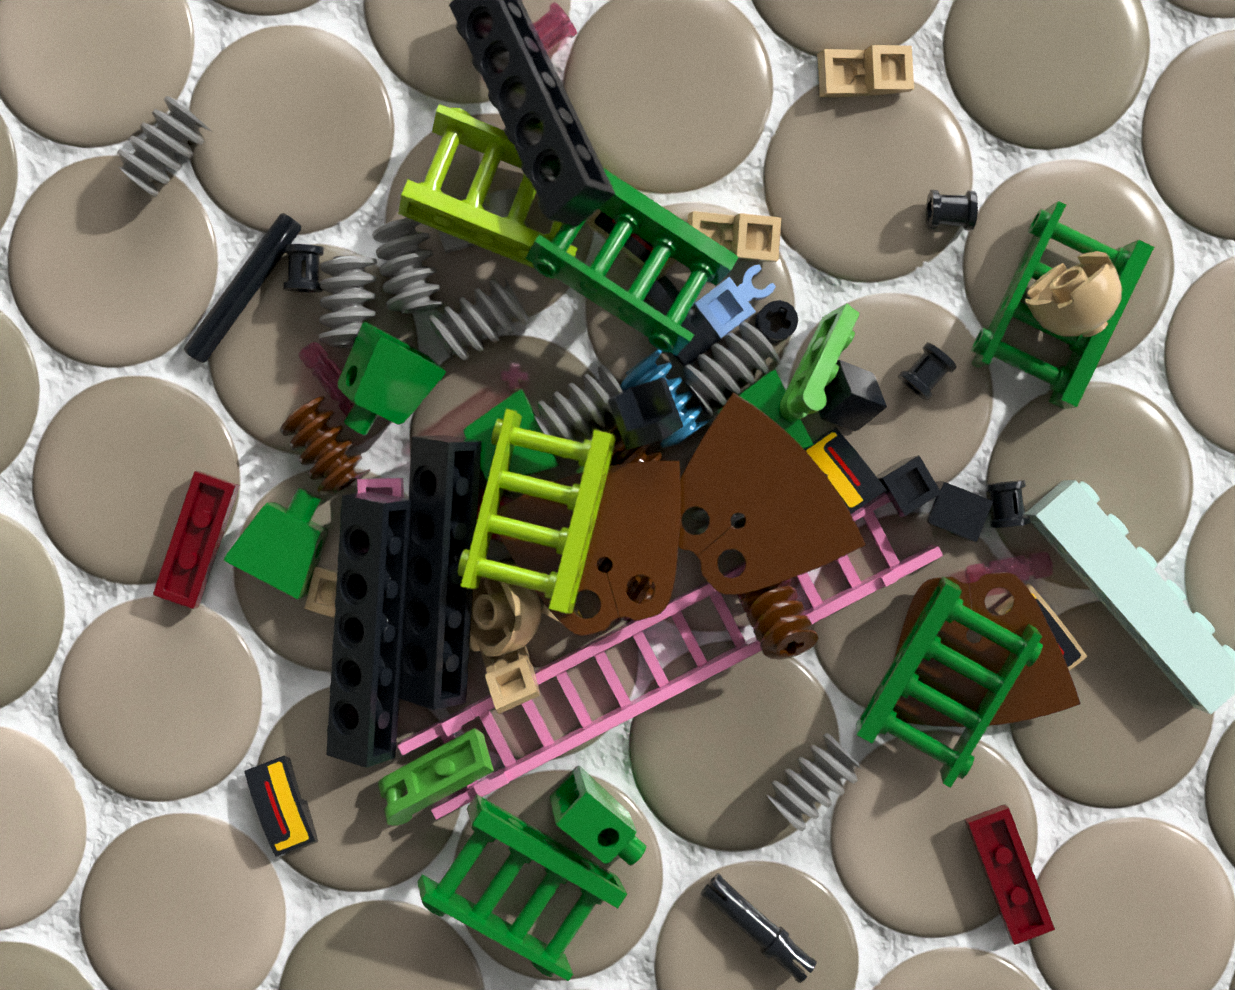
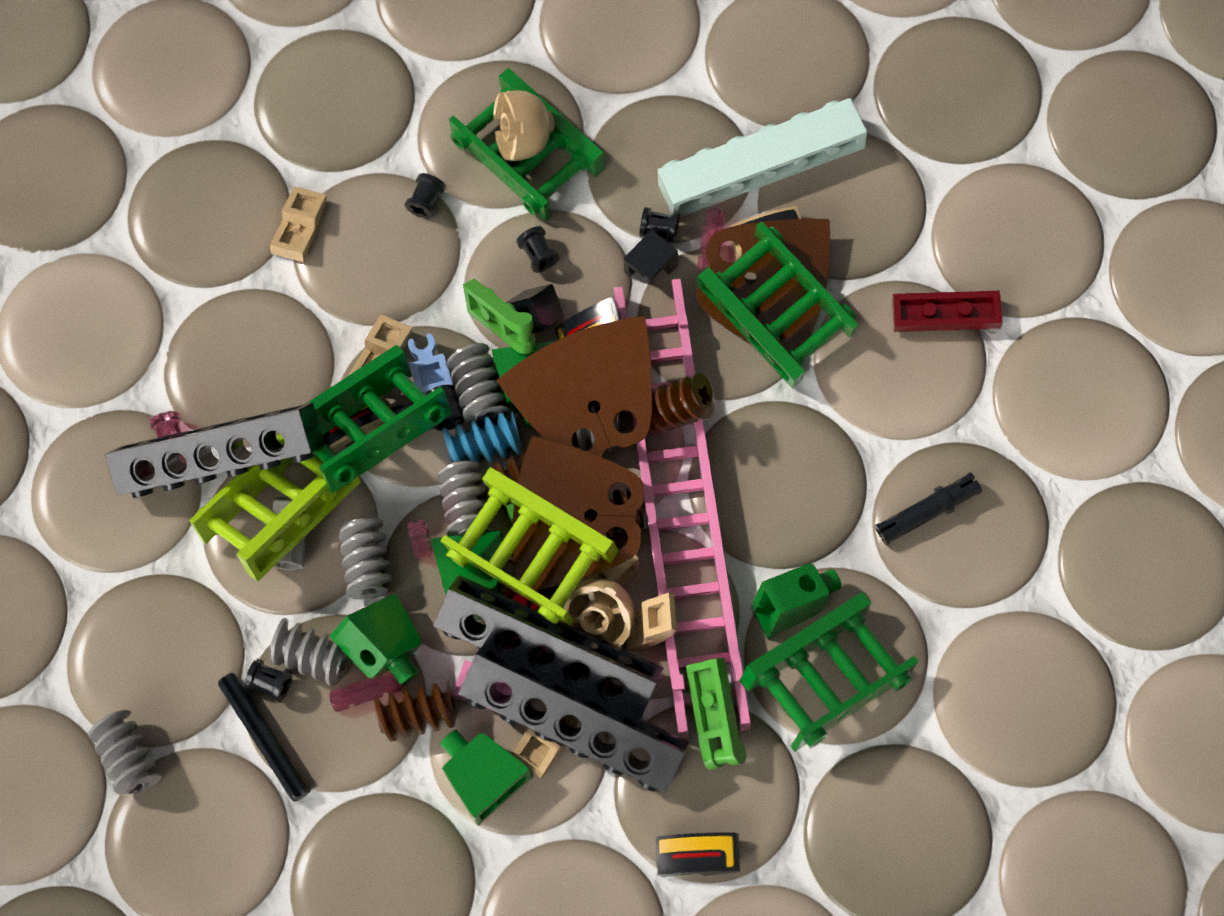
camera: 60 degrees left, 20 degrees down
(196, 539) = (450, 845): dark red plate -> none
(406, 267) = (300, 598): light grey piece -> none
(645, 413) = (485, 445): black panel -> none
(789, 318) = (459, 337): black bush -> none
(814, 782) = (819, 426): light grey piece -> none
(909, 485) = (617, 282): black panel -> none

